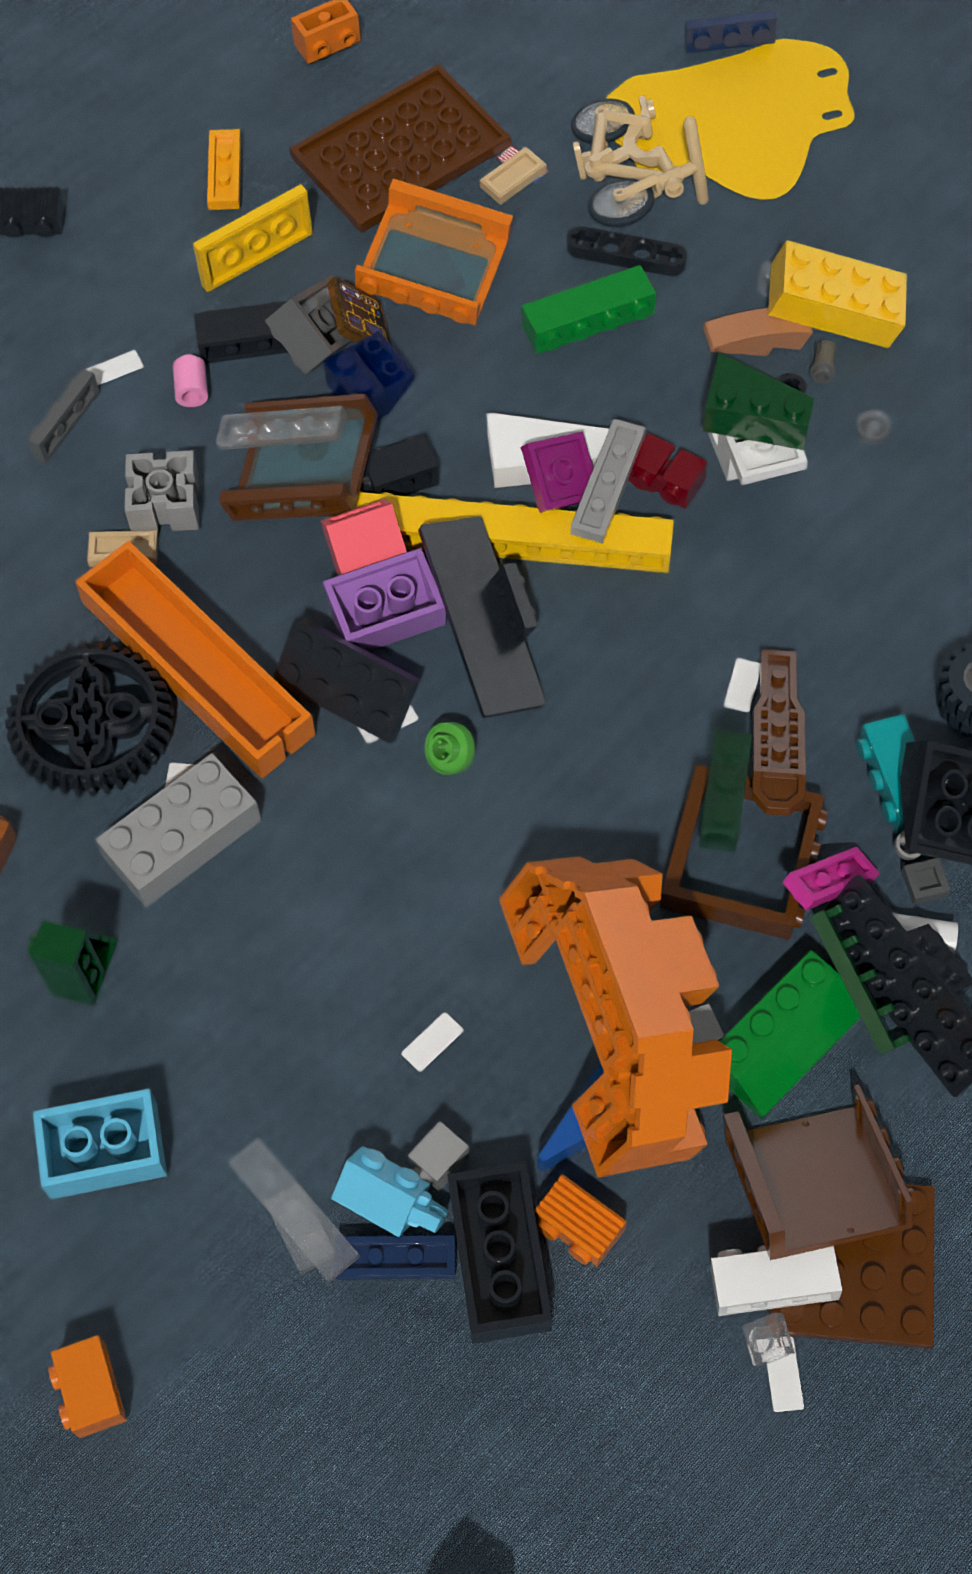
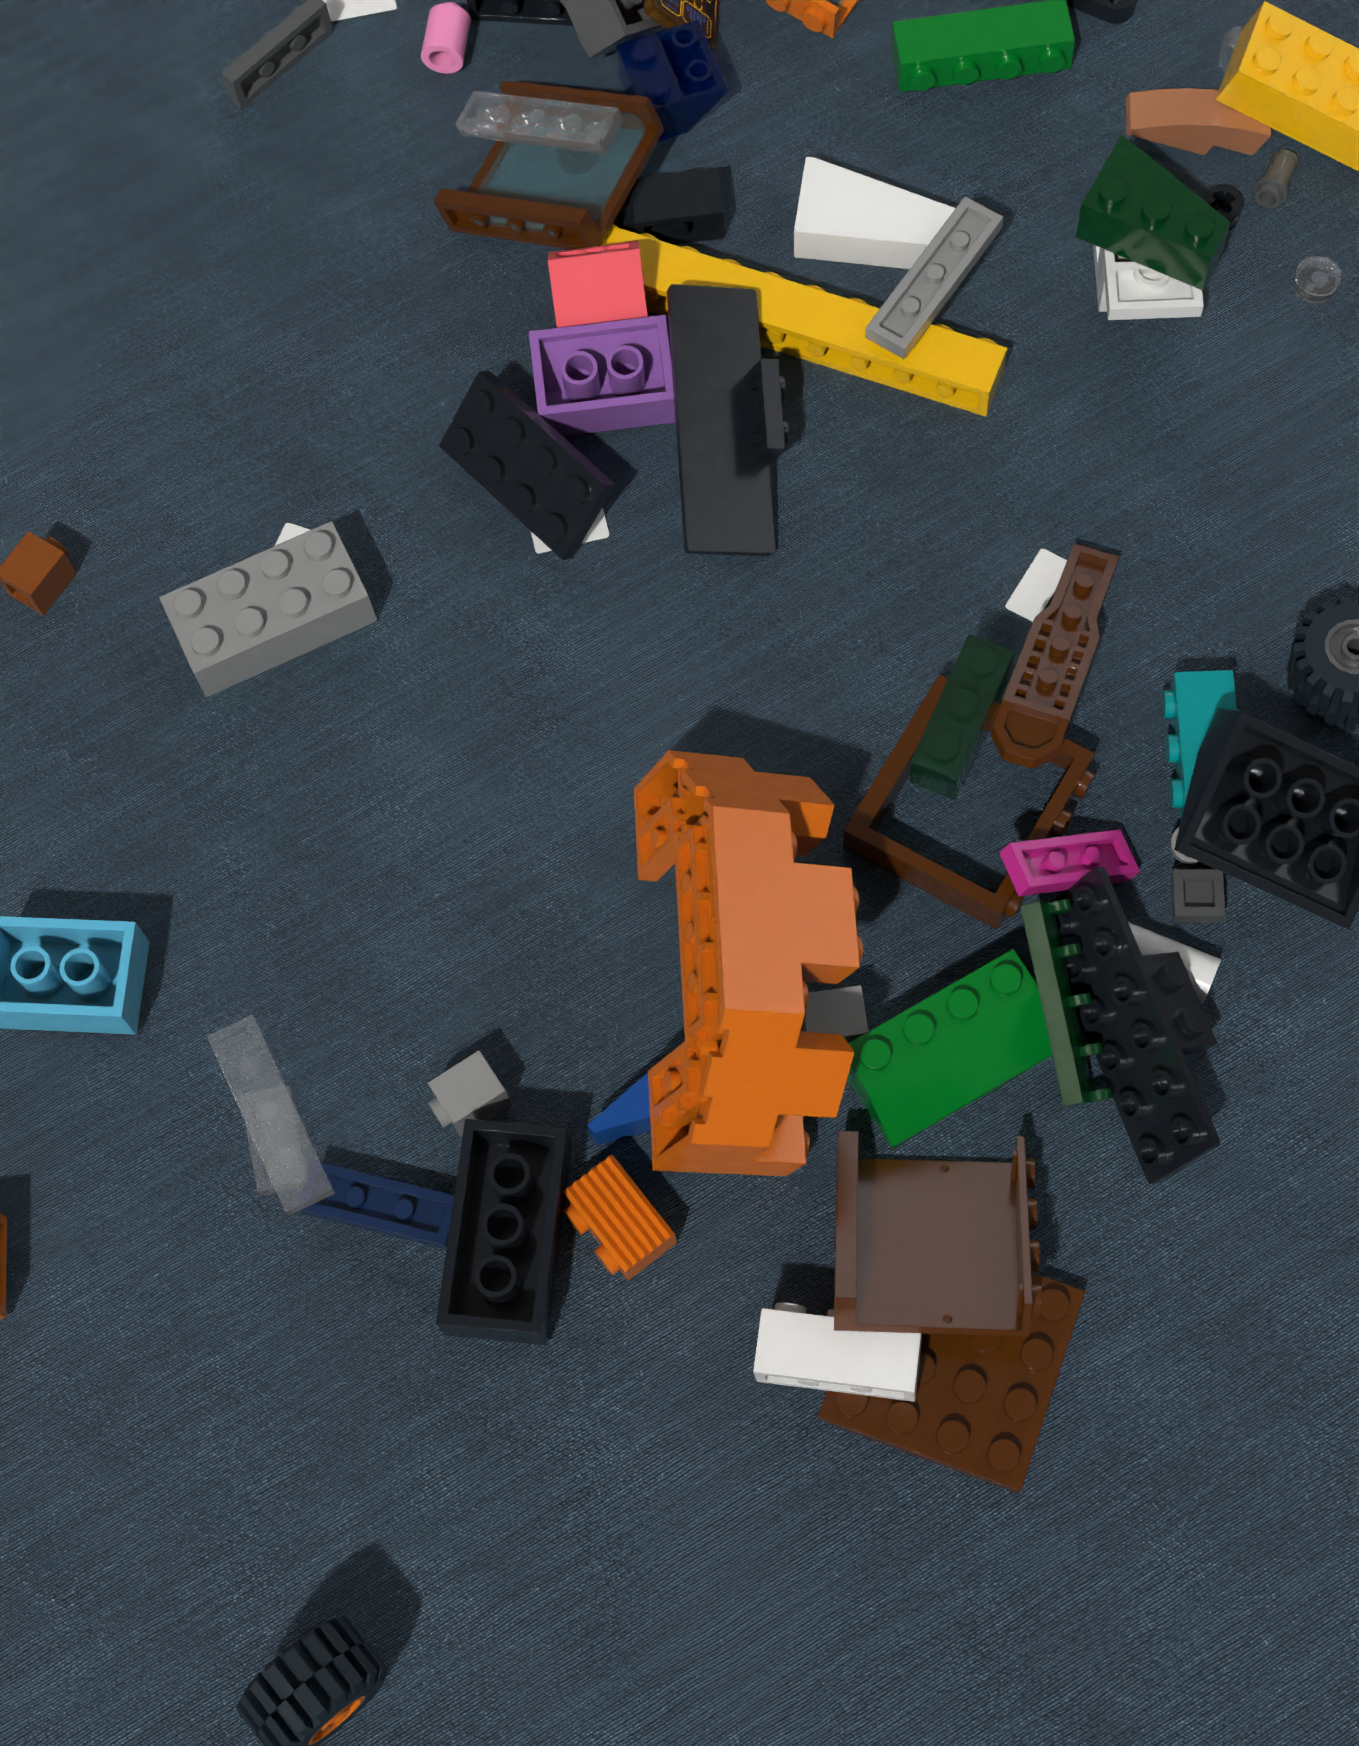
camera: 20 degrees right, 5 degrees up
(71, 960) = (90, 739): dark green wedge -> none
(85, 693) = (200, 445): black gear -> none
(105, 542) = (304, 237): tan tile -> none
(162, 491) = (368, 174): light grey brick -> none
(196, 659) = (349, 397): orange piece -> none
(387, 1194) = (389, 1124): medium azure hinge -> none
(432, 1041) = (506, 948): white sticker -> none
(449, 748) = (633, 582): bright green plate -> none
(558, 470) = (872, 249): magenta plate -> none
(674, 480) = (1029, 294): dark red piece -> none
(768, 1339) = (811, 1427): clear plate -> none
(785, 1383) = (821, 1475): white sticker -> none

